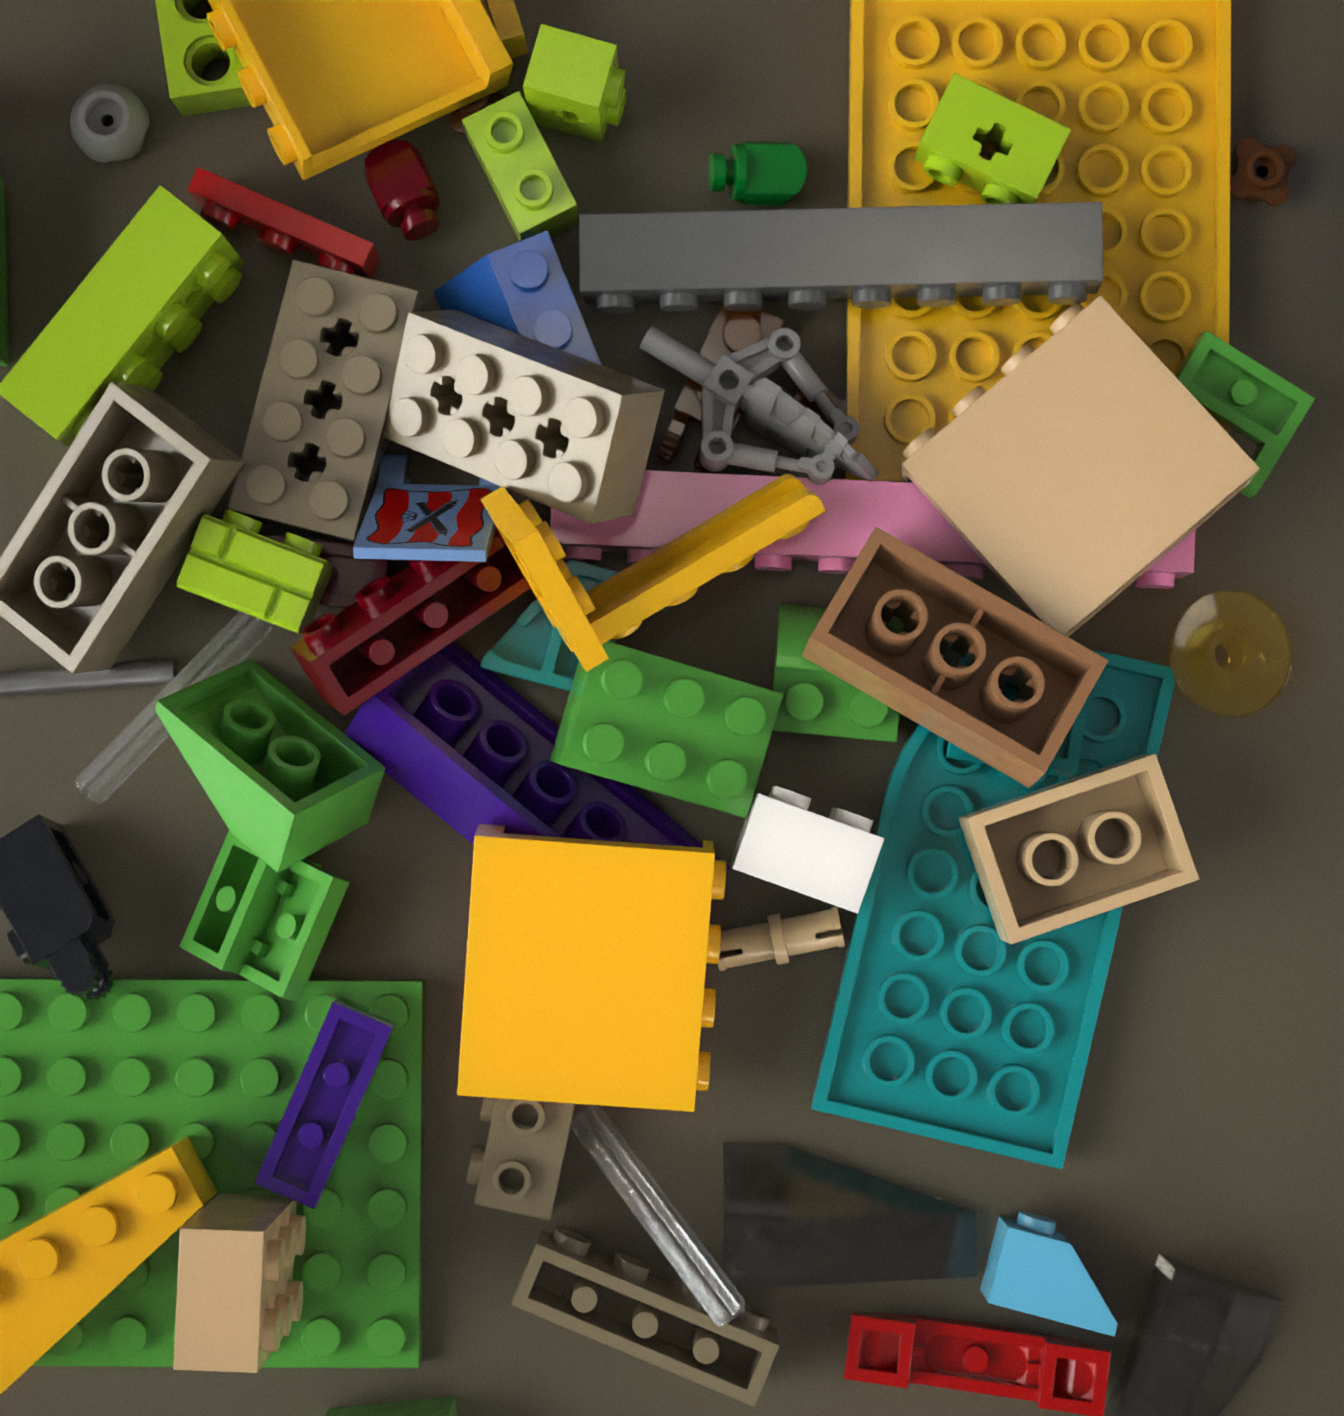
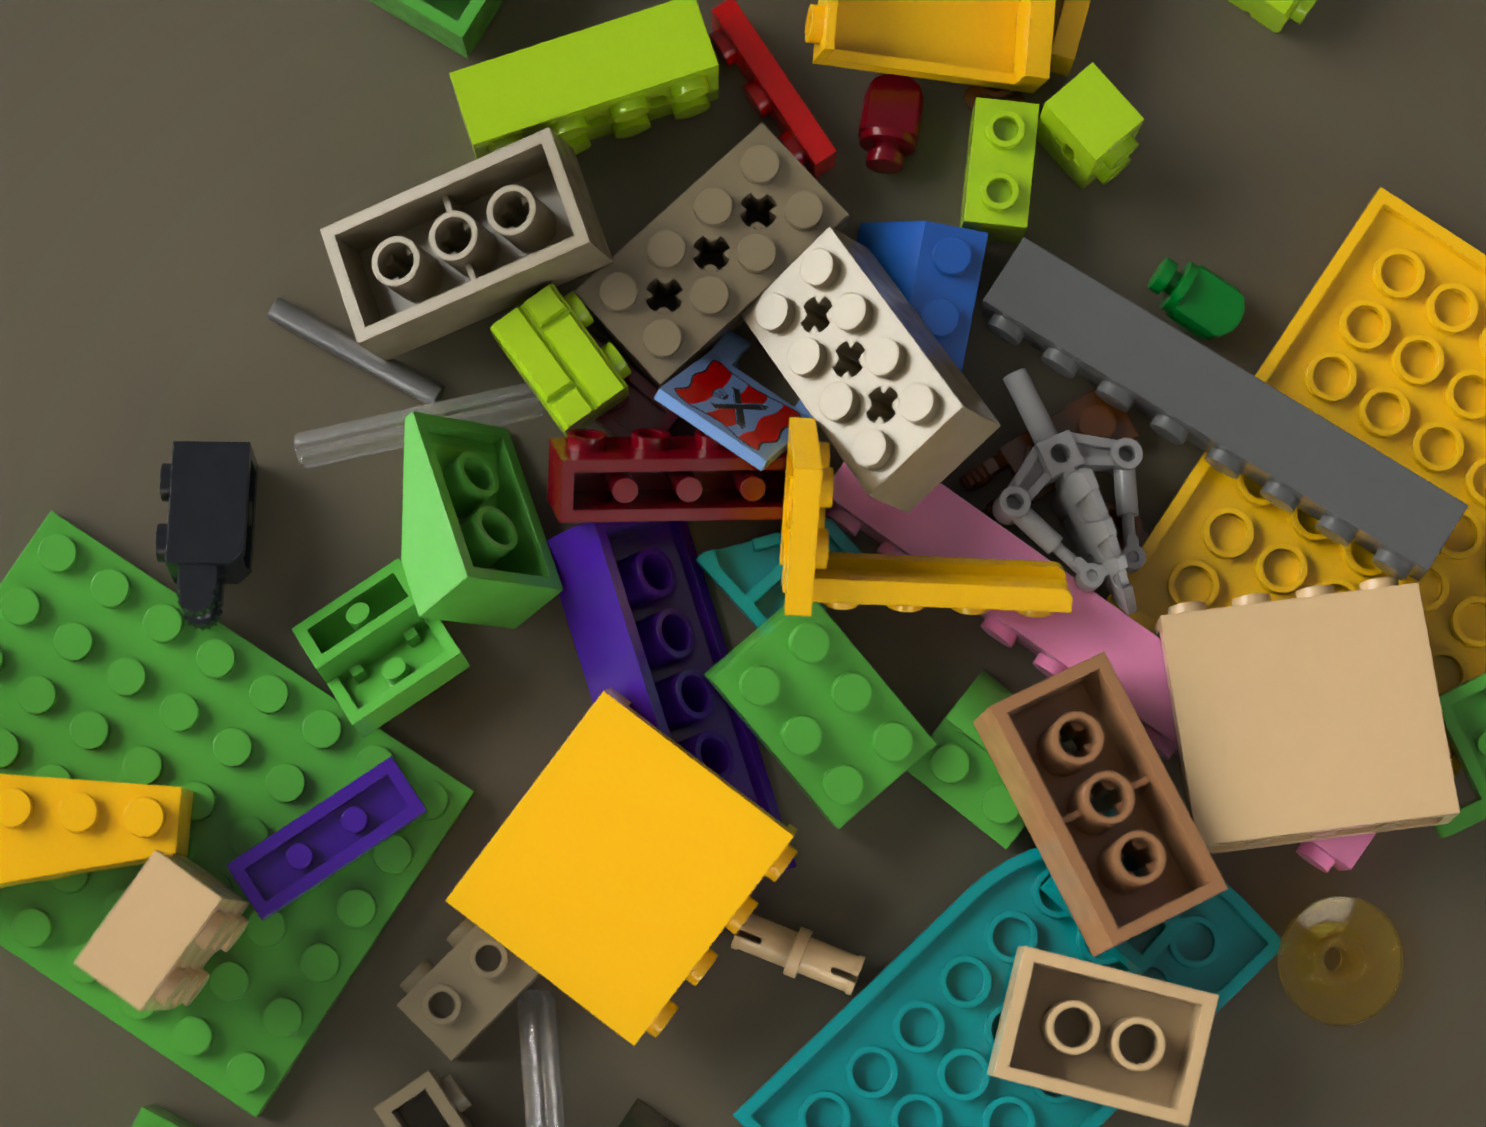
camera: 30 degrees right, 5 degrees down
(806, 850) = (872, 888): white piece -> none
(960, 128) = (1398, 367): lime brick -> none

